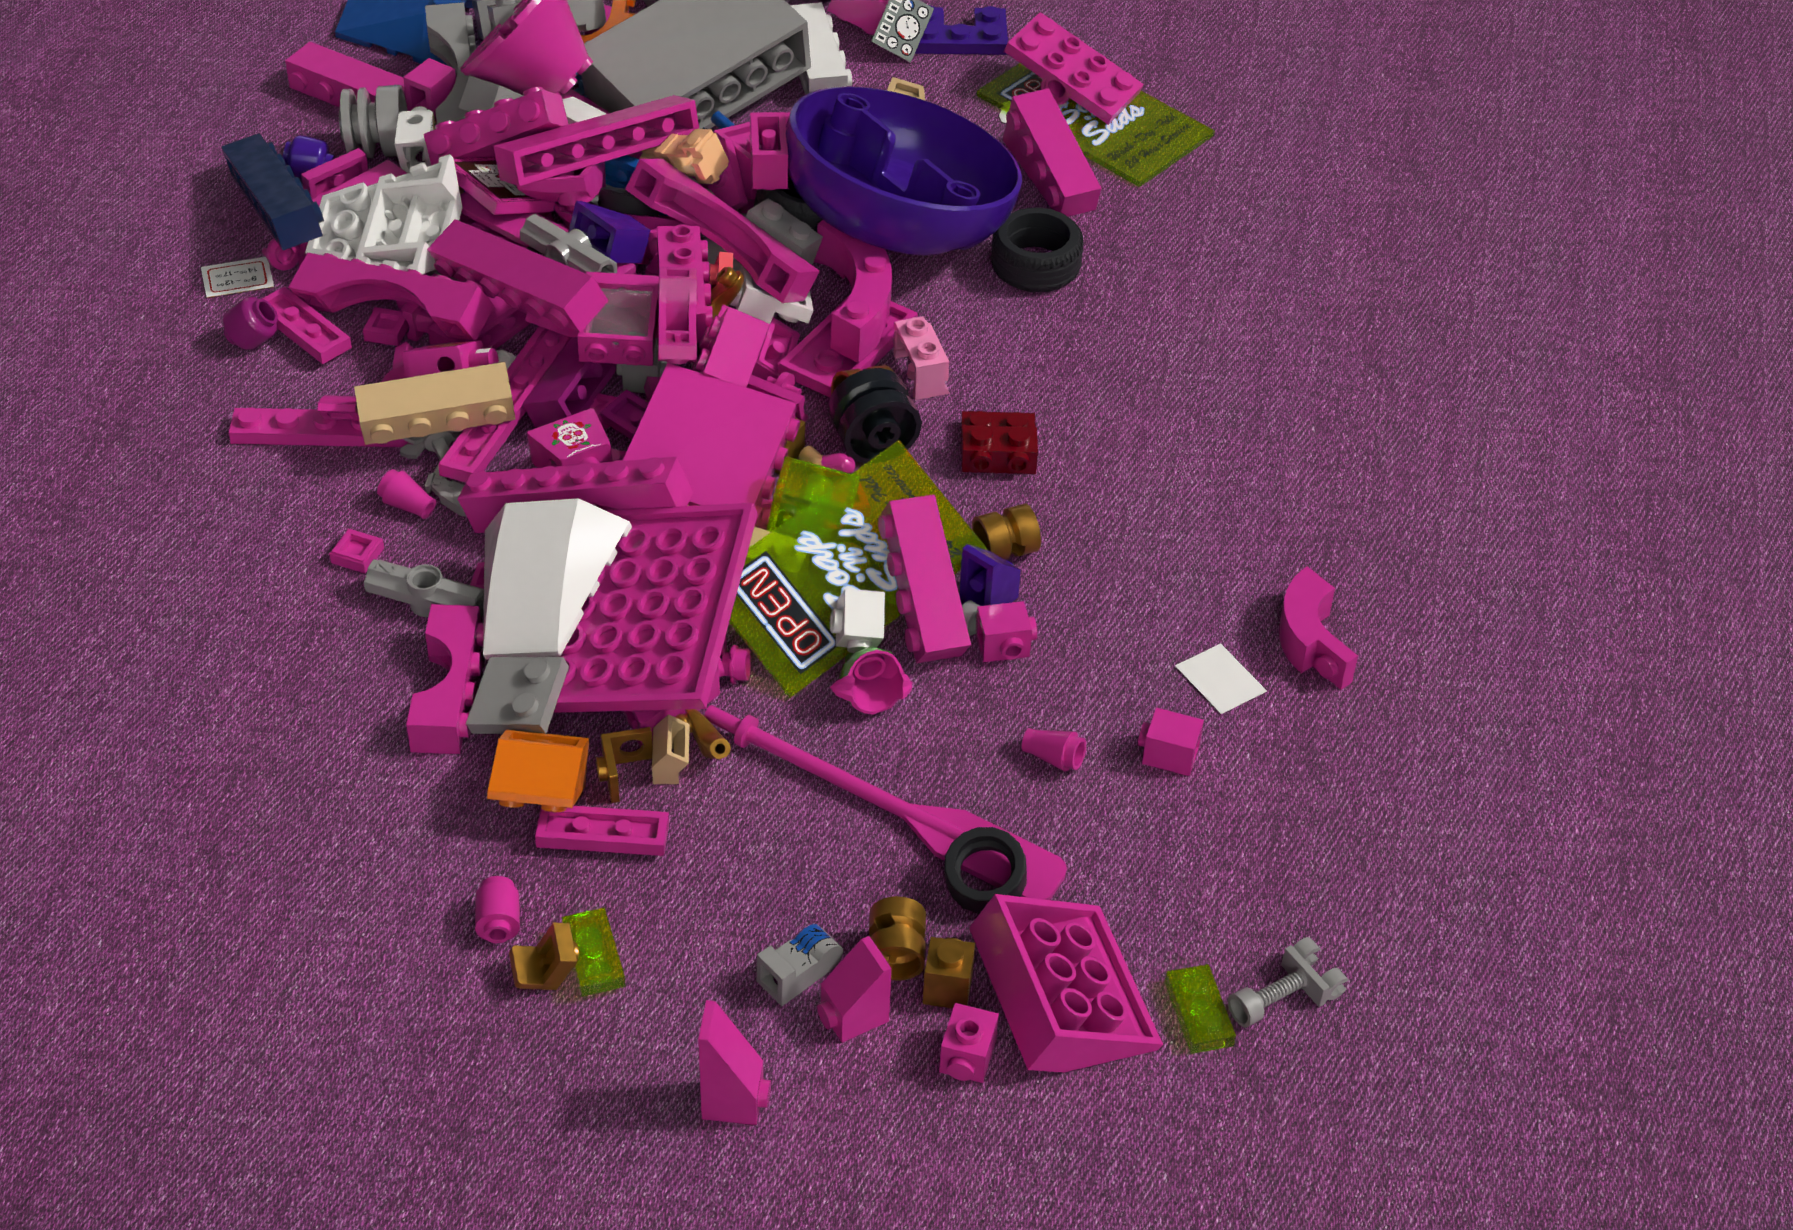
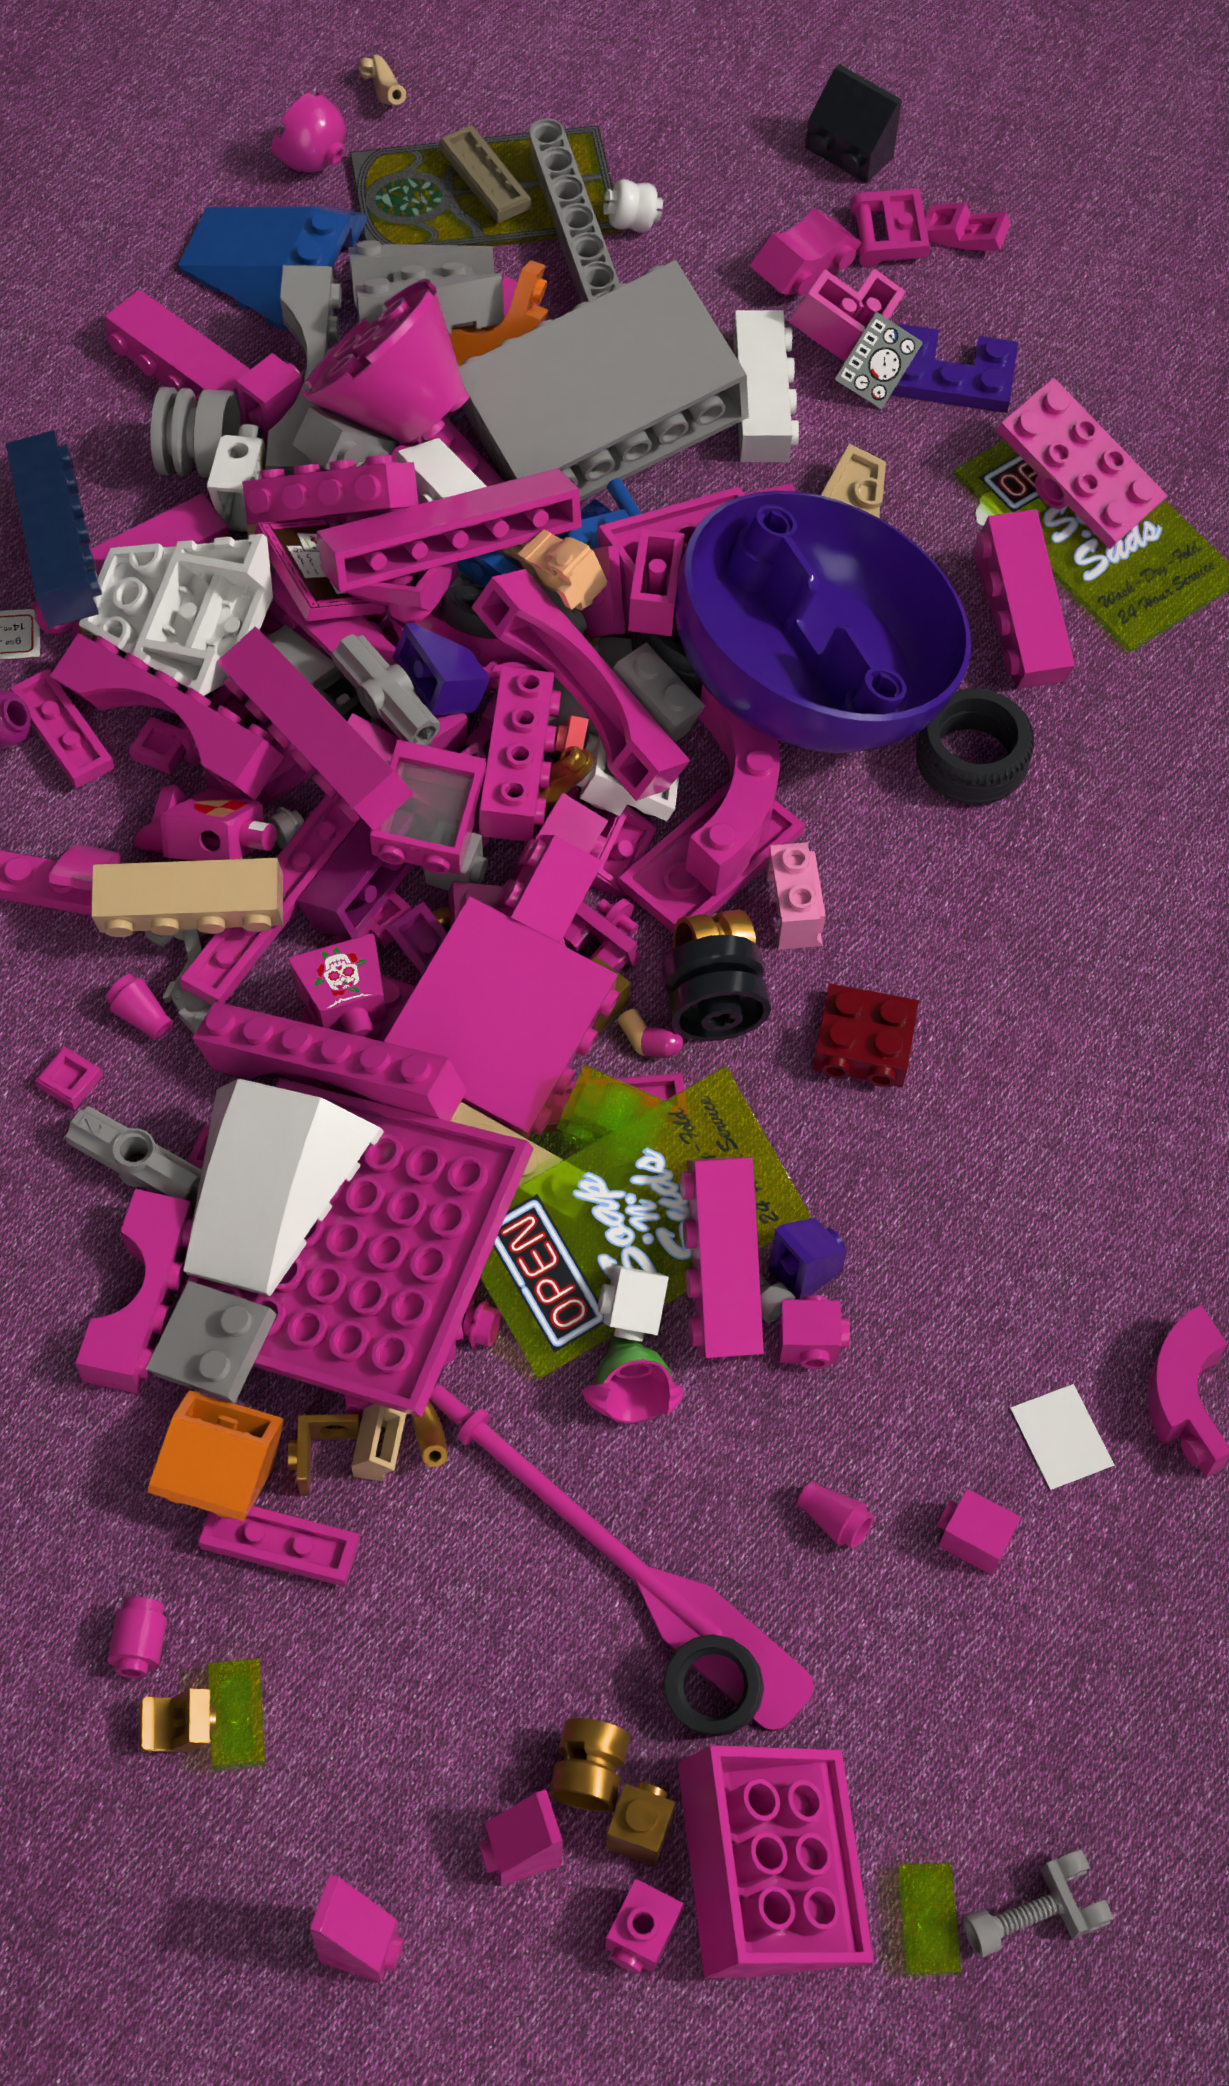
camera: 10 degrees right, 15 degrees up
(305, 154) = (108, 471): dark purple head -> none
(334, 172) = (136, 503): dark pink plate -> none
(677, 315) = (494, 828): dark pink arch -> none
(797, 963) = (470, 1773): light grey leg -> none
(1012, 532) = (843, 1186): pearl gold wheel -> none

